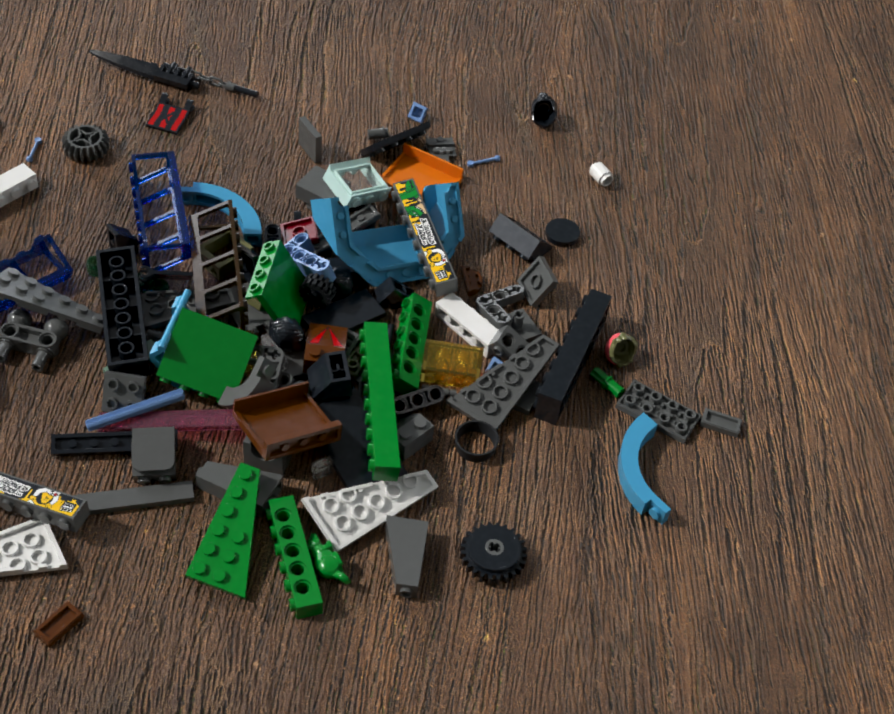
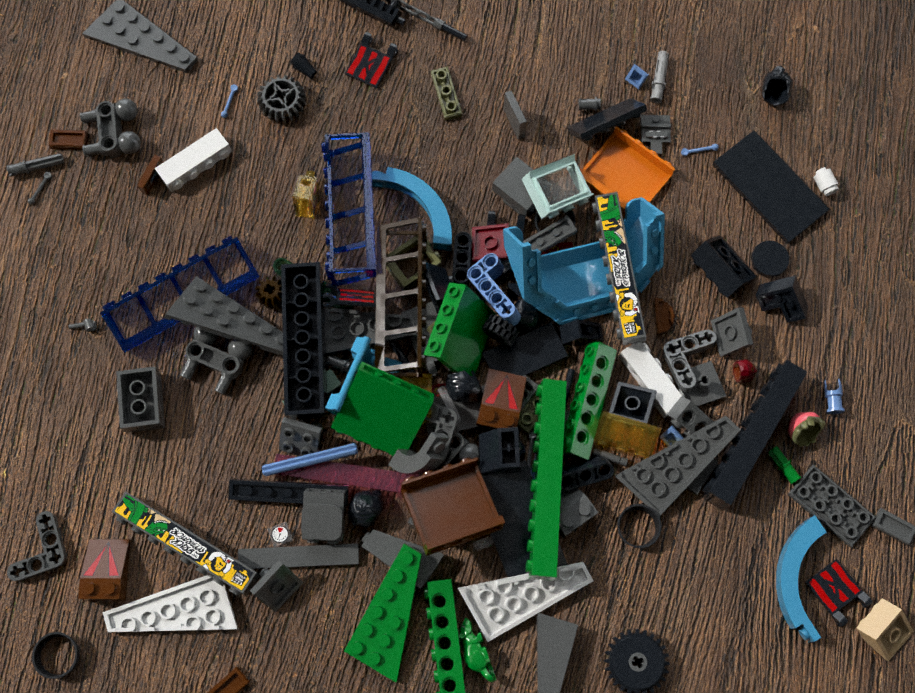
camera: 15 degrees right, 25 degrees up
(84, 284) = (263, 292): none -> dark brown gear
(103, 118) = (302, 64): none -> black cone
(108, 481) = (280, 534): none -> tile
(108, 518) = (276, 585): none -> dark grey tile
(115, 202) = (306, 195): none -> clear yellow torso
(121, 237) = (310, 241): black slope -> none
(197, 446) = (366, 508): none -> black hair
(243, 133) = (448, 101): none -> olive tile
(438, 116) = (659, 83): none -> light grey pin
(456, 334) = (633, 402): none -> black slope
(552, 182) = (770, 187): none -> black tile
(554, 312) = (744, 371): none -> dark red rock
(582, 252) = (784, 294): none -> black panel
(642, 326) = (834, 399): none -> medium blue piece
(678, 477) = (835, 589): none -> flag
(732, 501) = (885, 628): none -> tan slope

